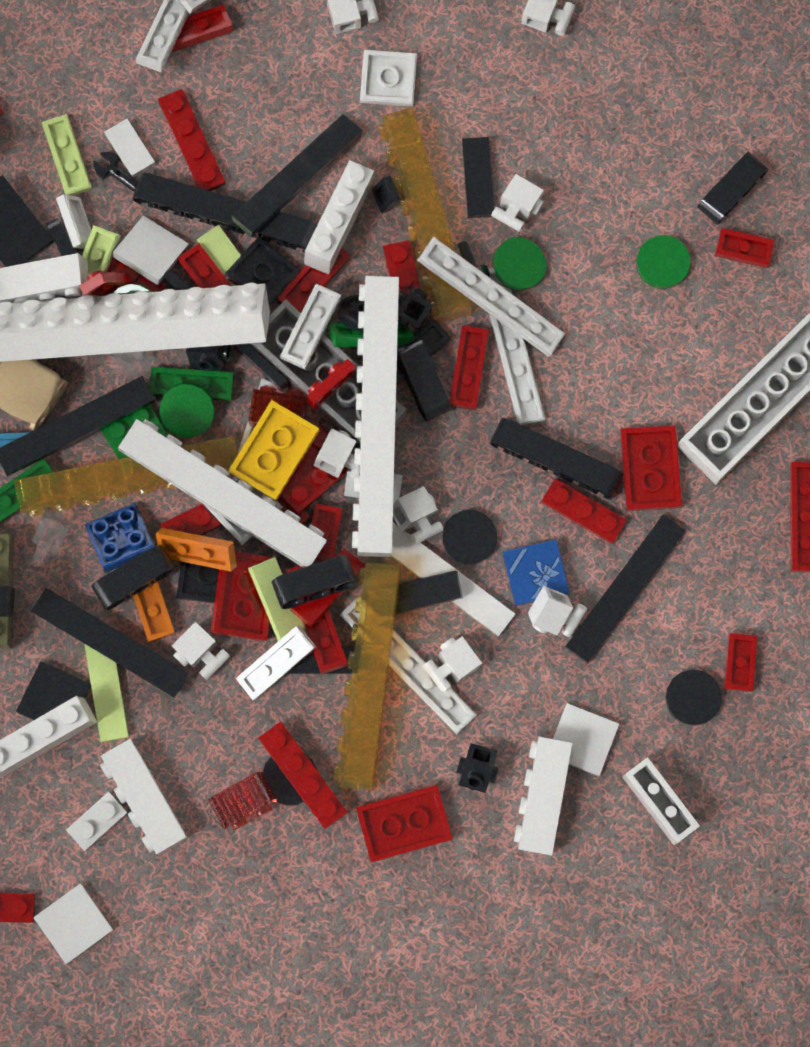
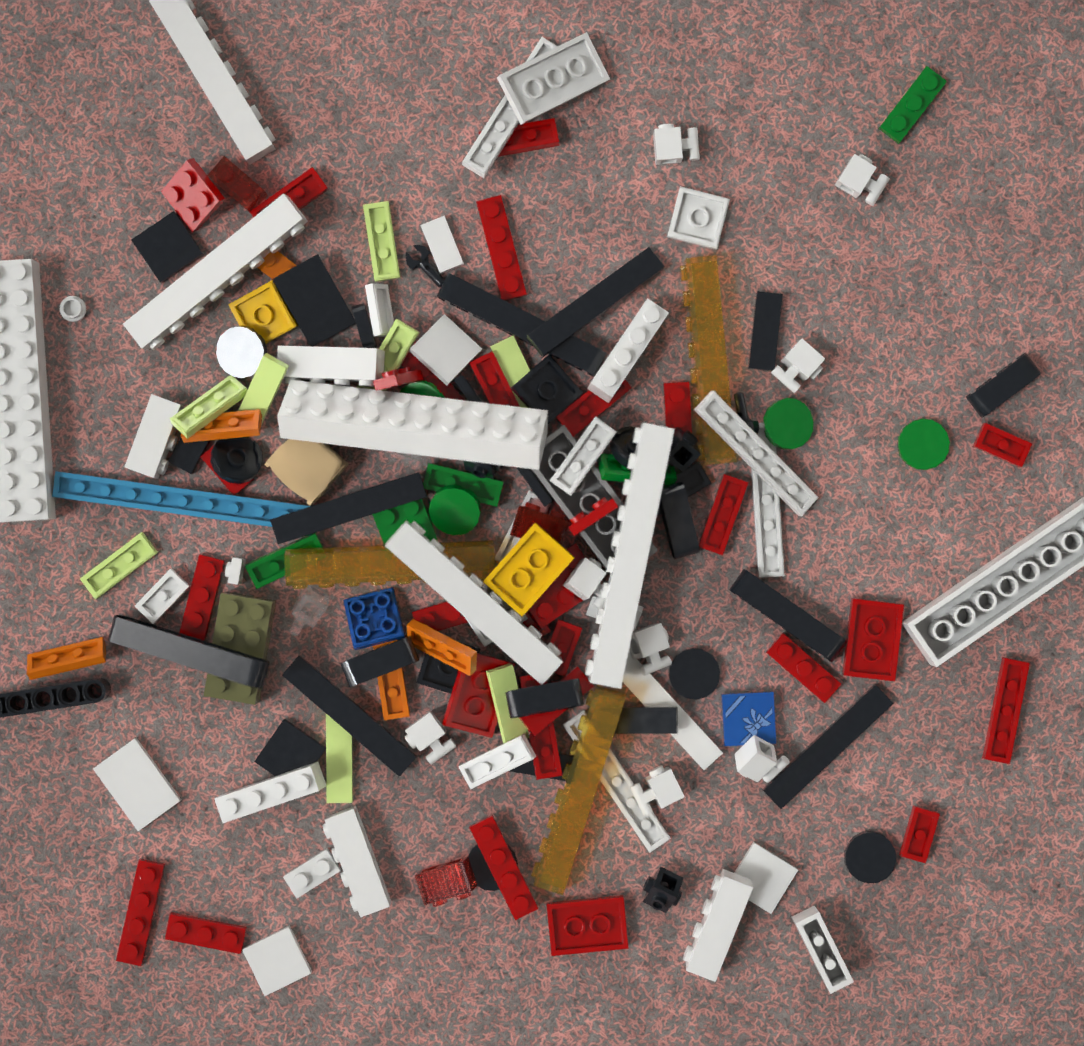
camera: 15 degrees right, 10 degrees up
(386, 194) = (675, 334): black tile -> none

